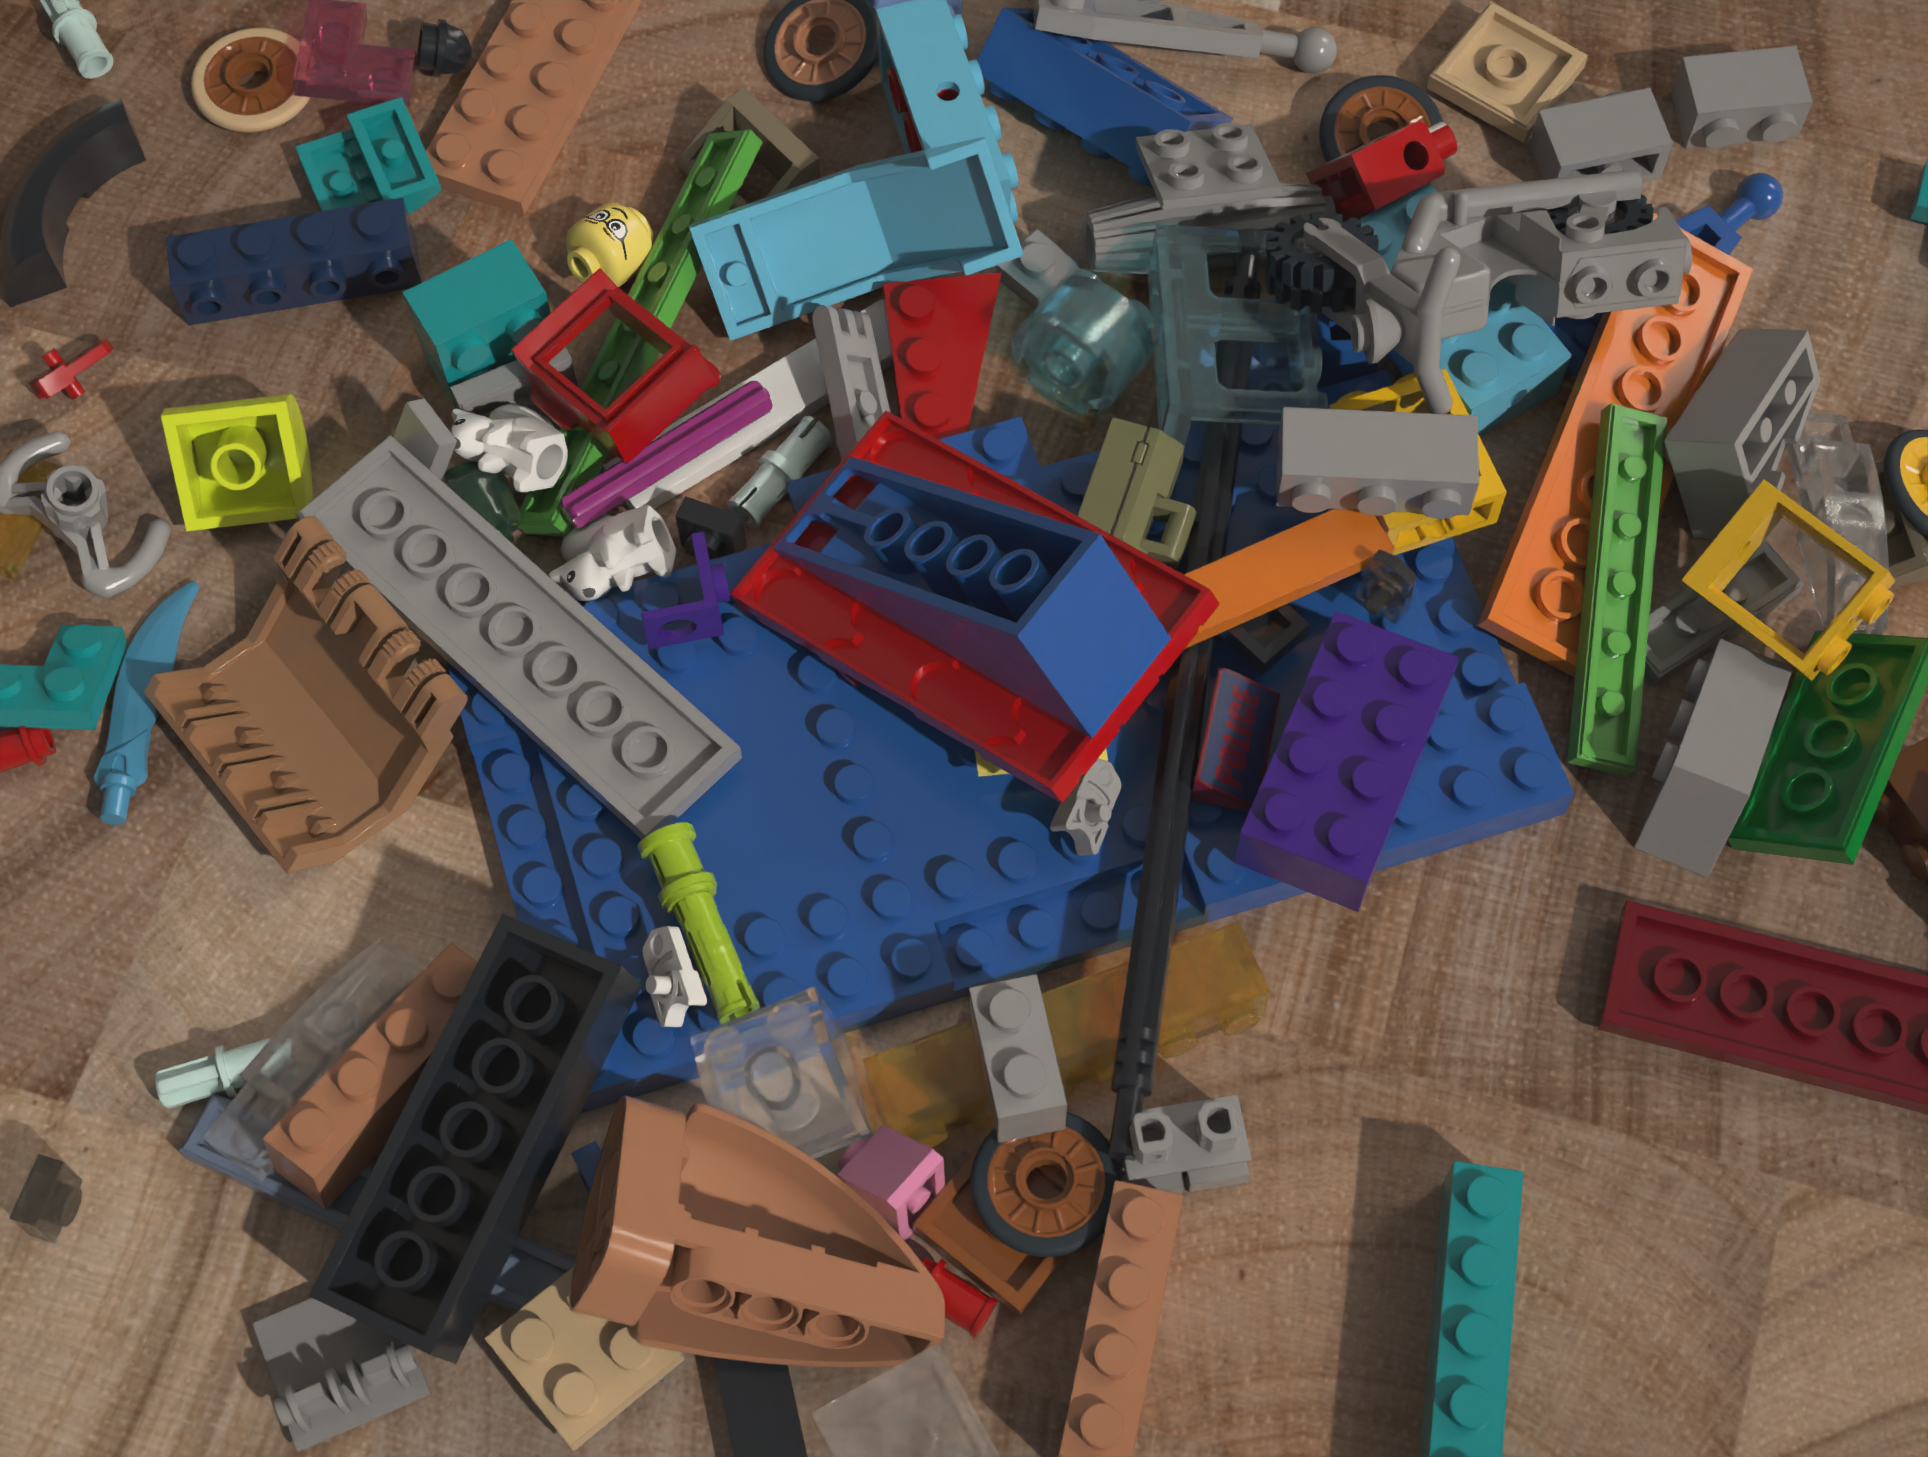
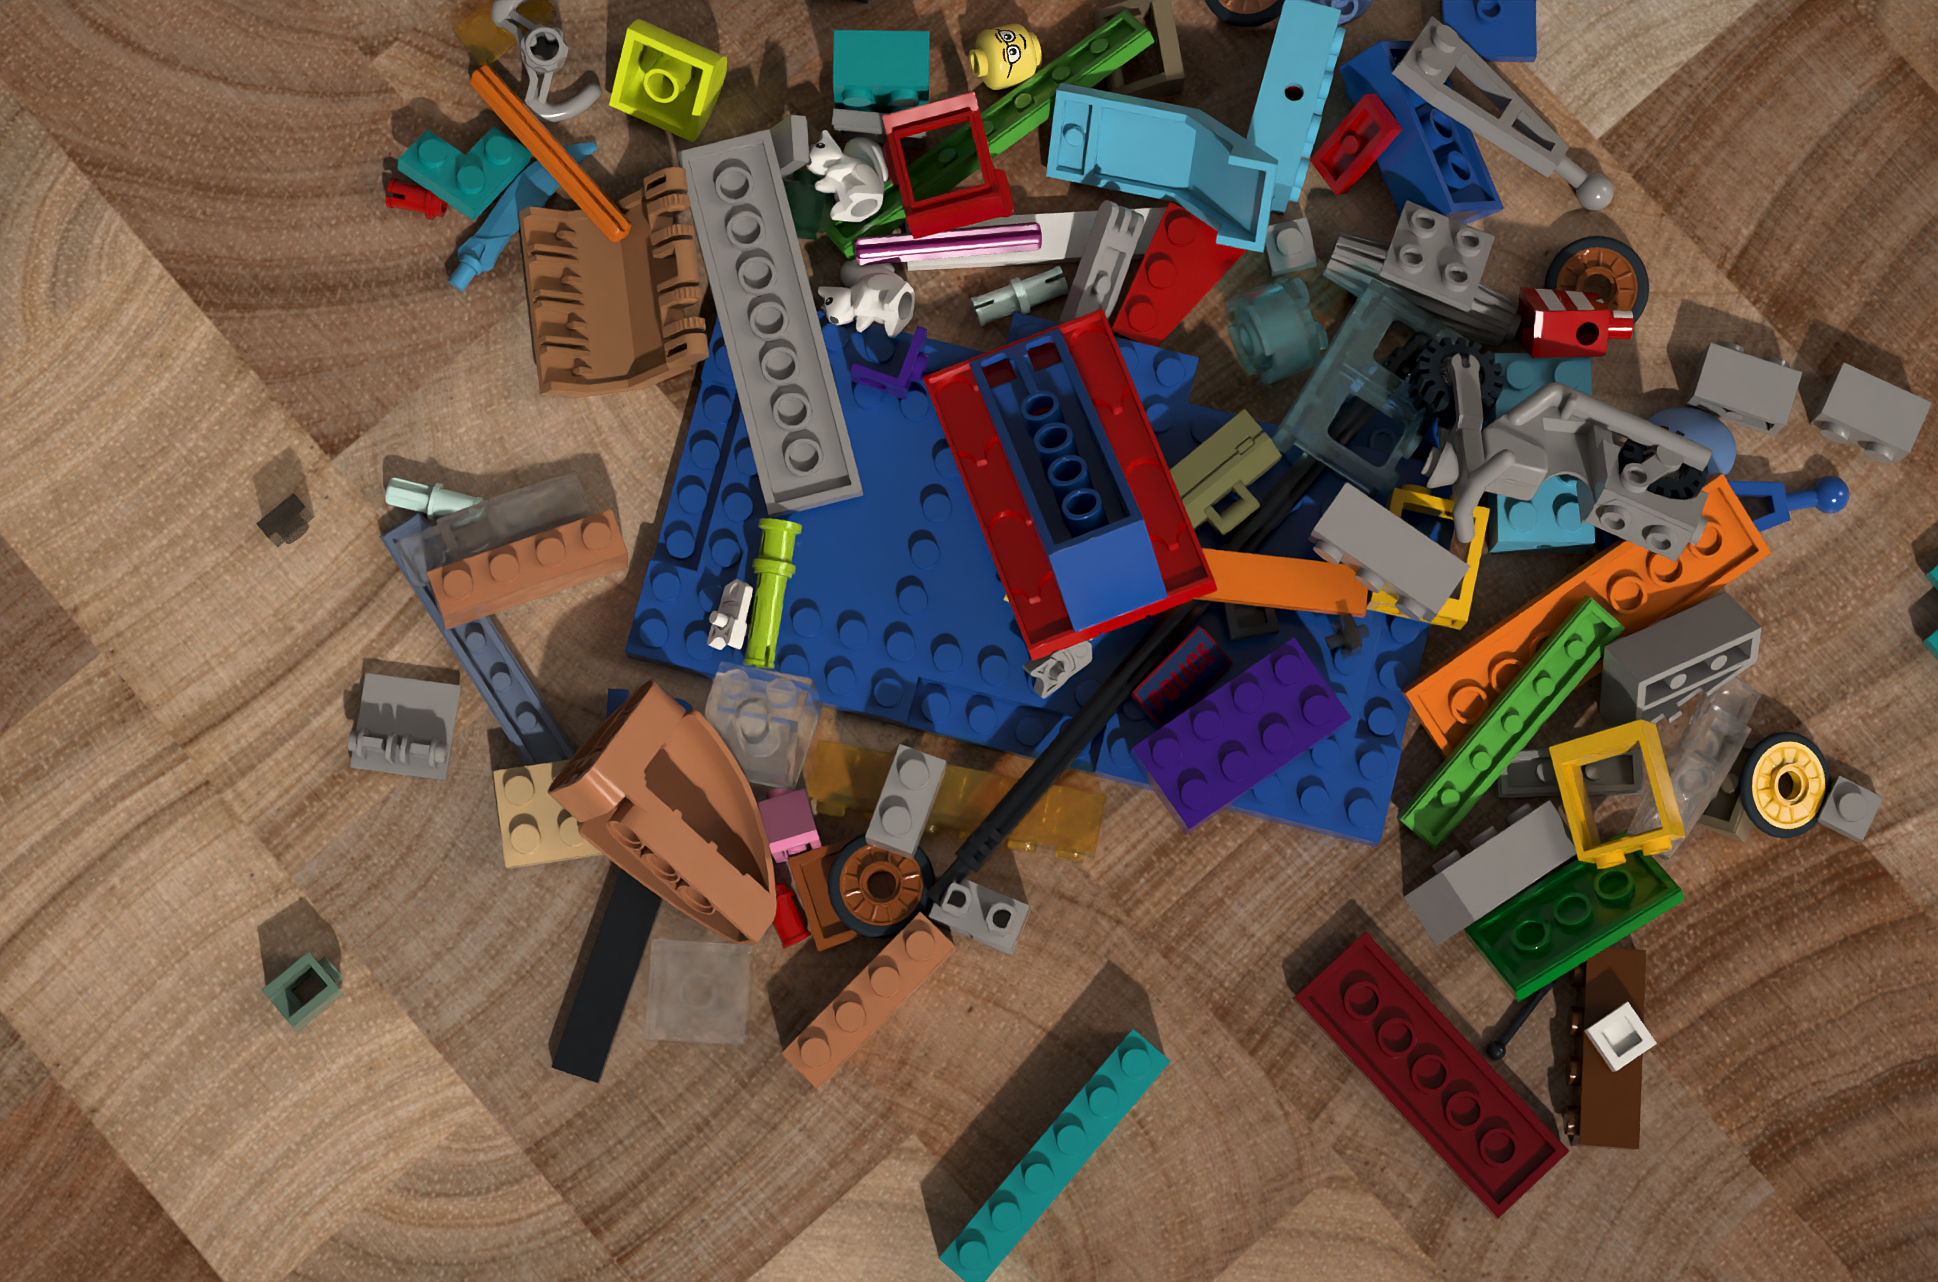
camera: 30 degrees right, 15 degrees up
(147, 613) = (550, 153): none -> orange axle
(477, 1139) = (555, 649): black brick -> none
(721, 528) = (944, 315): black plate -> none
(1043, 123) = (1355, 144): none -> red plate
(1506, 71) = (1720, 291): tan plate -> none
(1857, 944) = (1497, 1049): none -> black hinge

